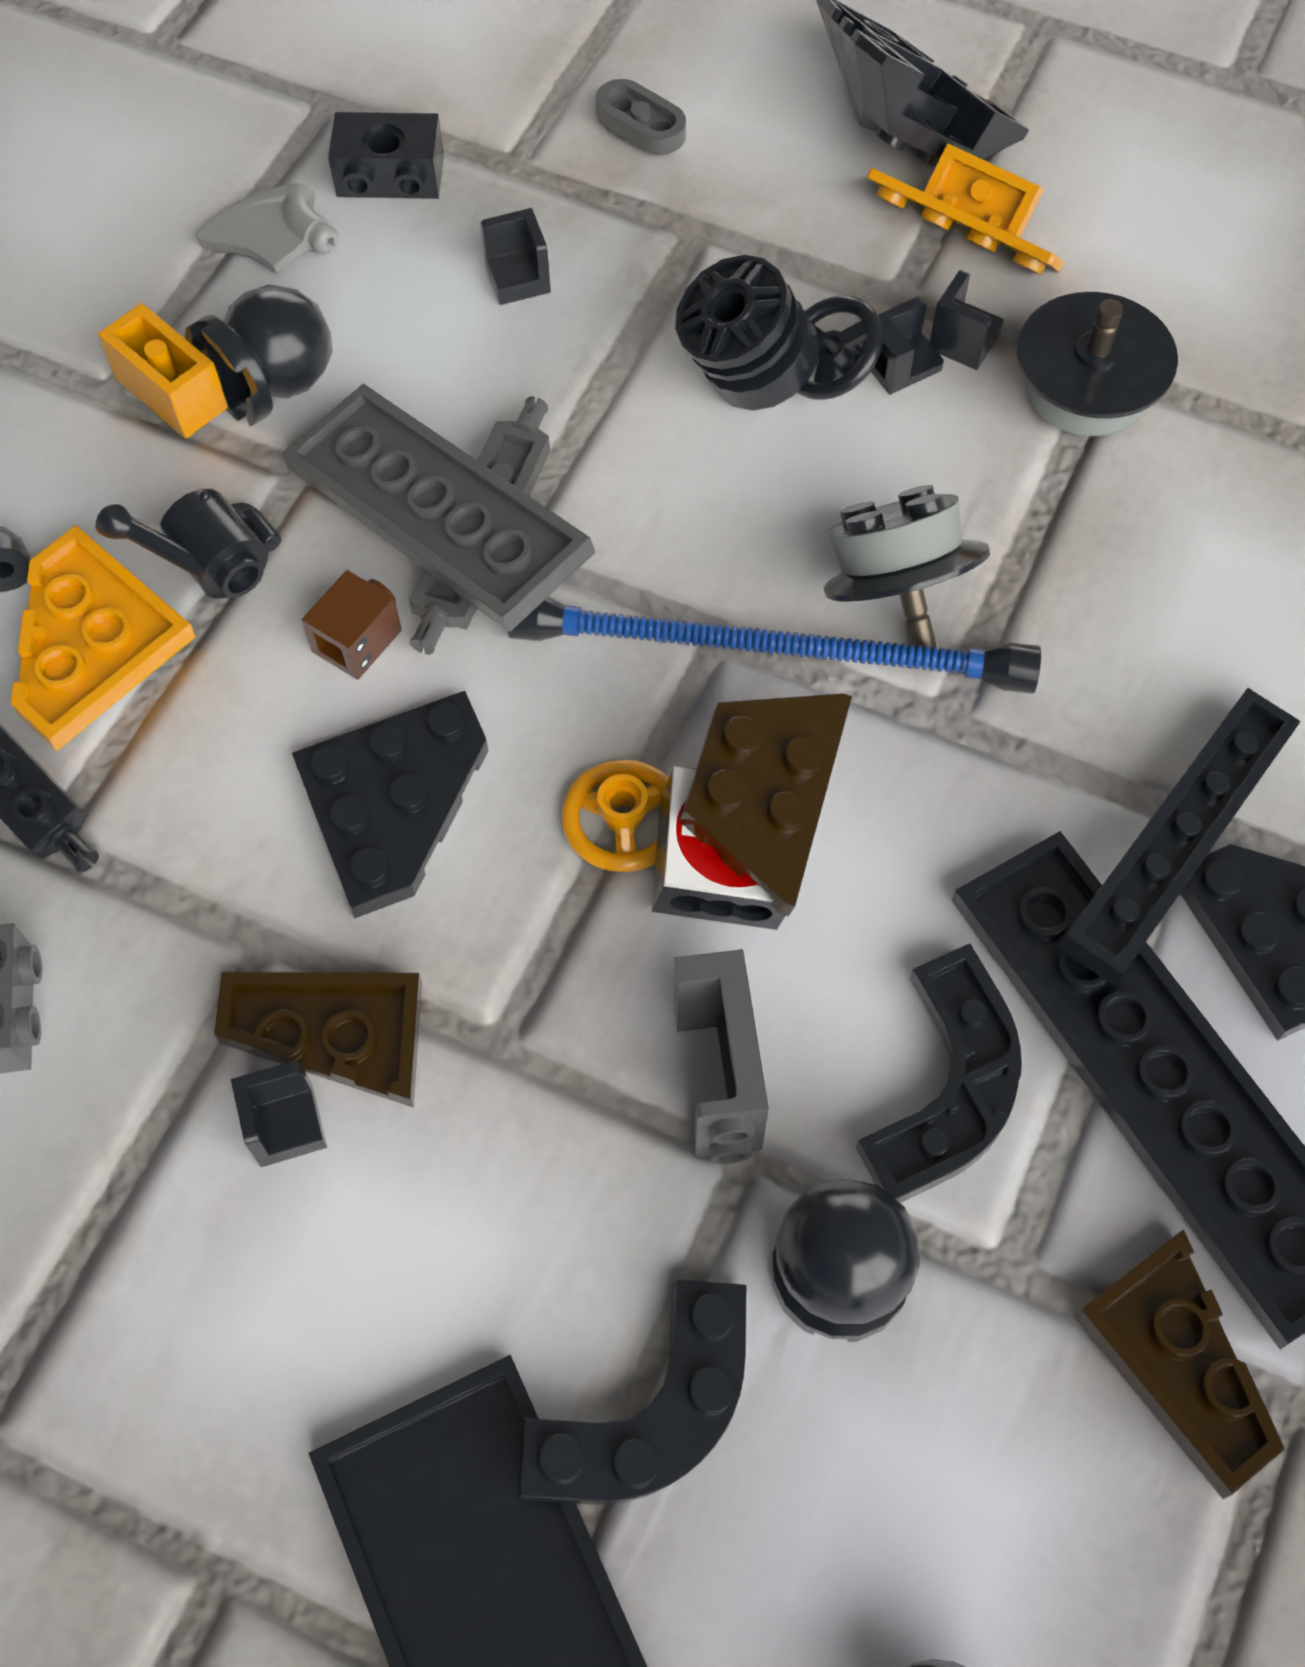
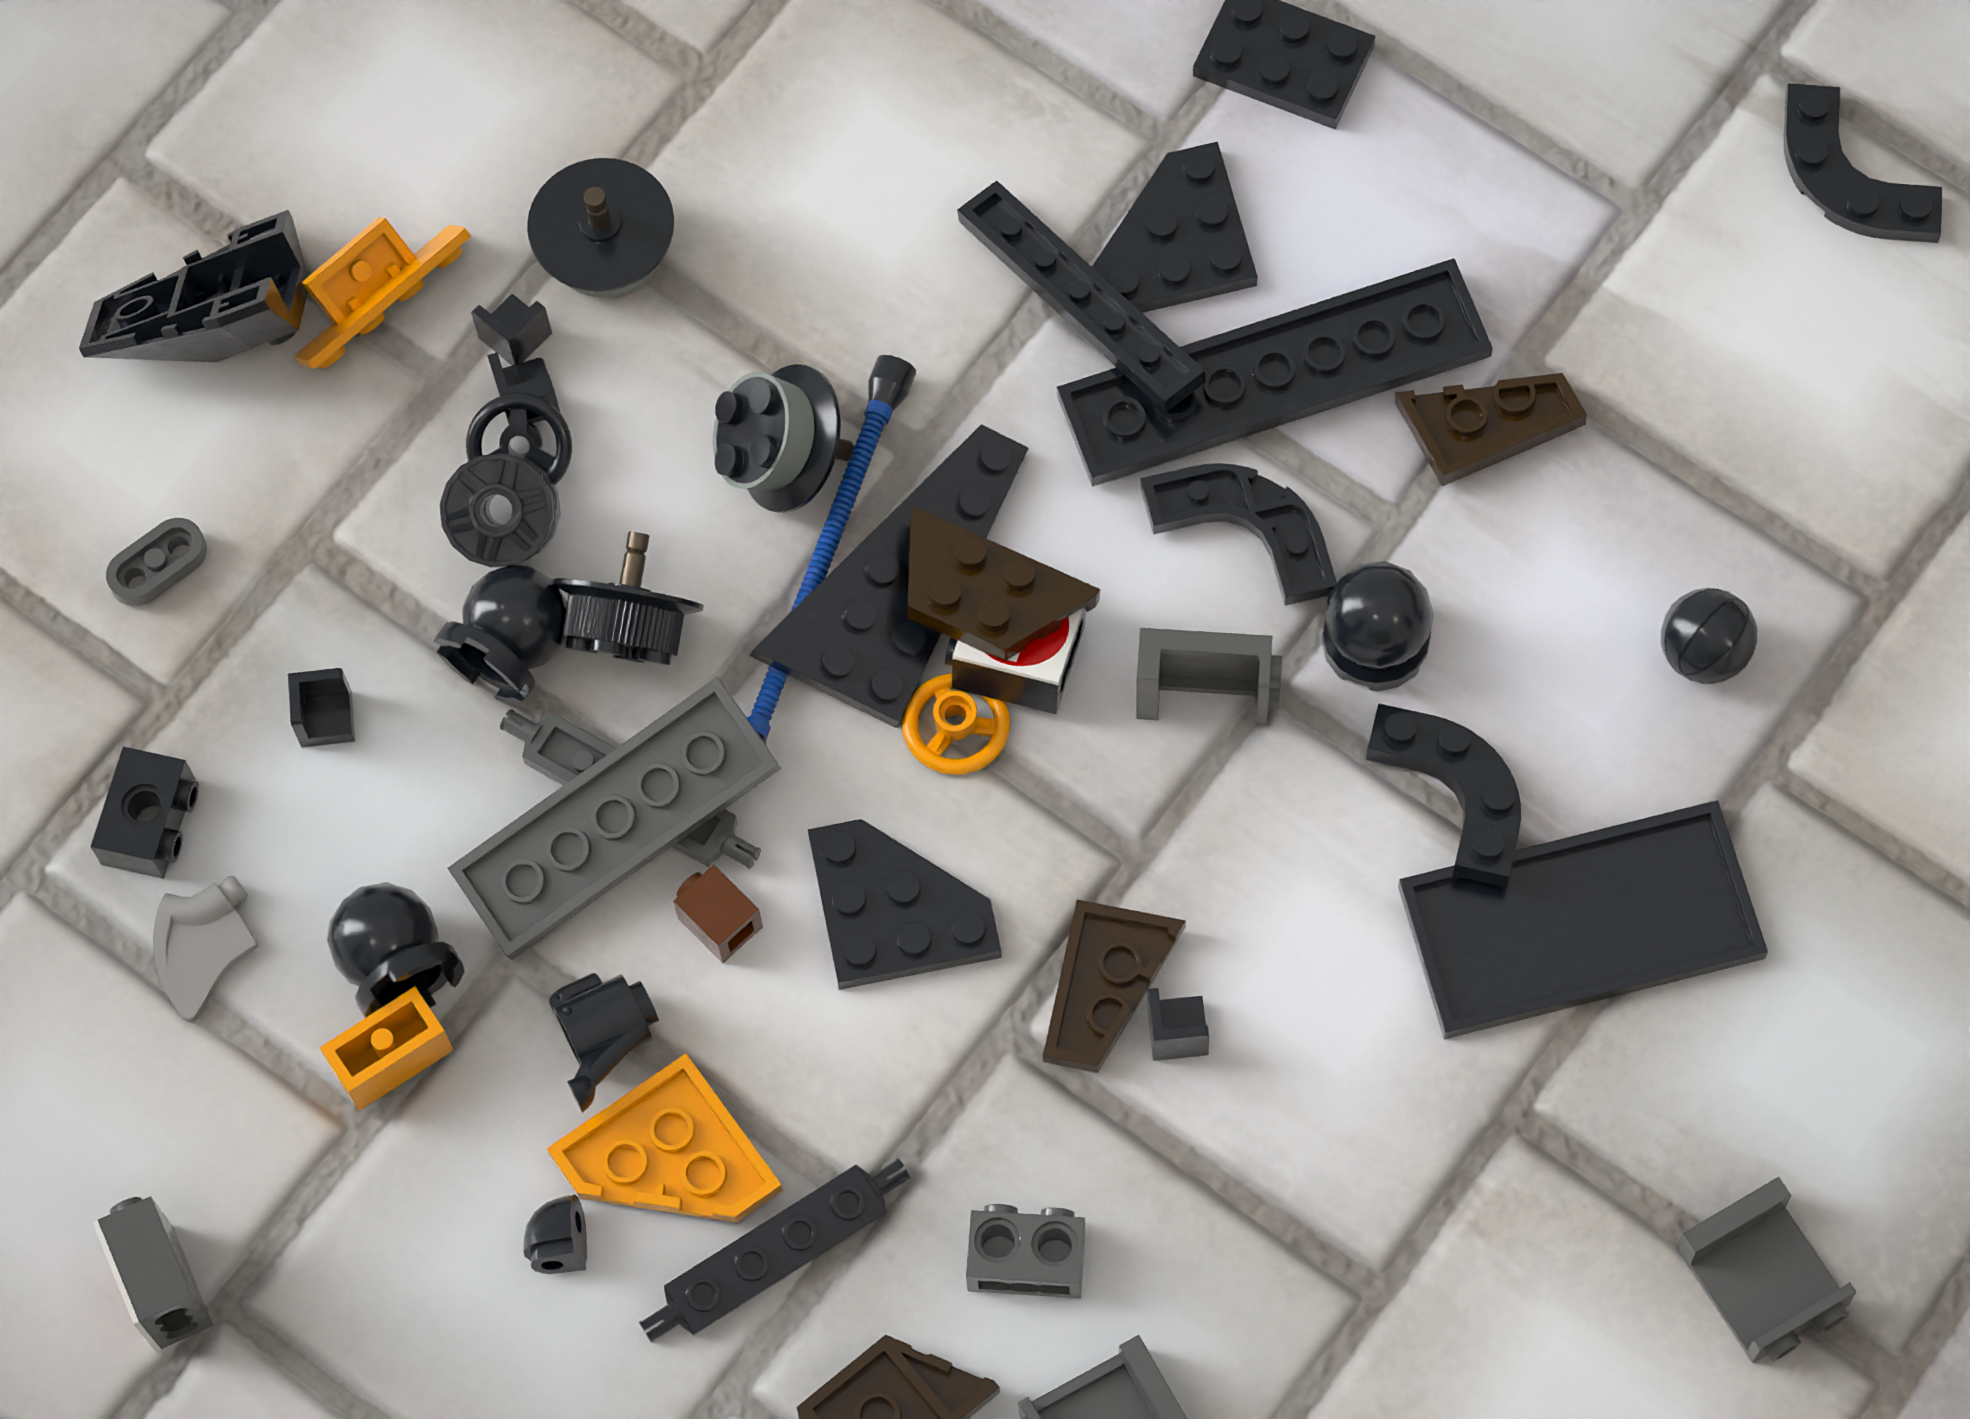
camera: 75 degrees left, 5 degrees up
(626, 371) = (507, 628): none -> black tile
(659, 459) = (624, 616): none -> black piece
(692, 661) = (855, 625): none -> black wing

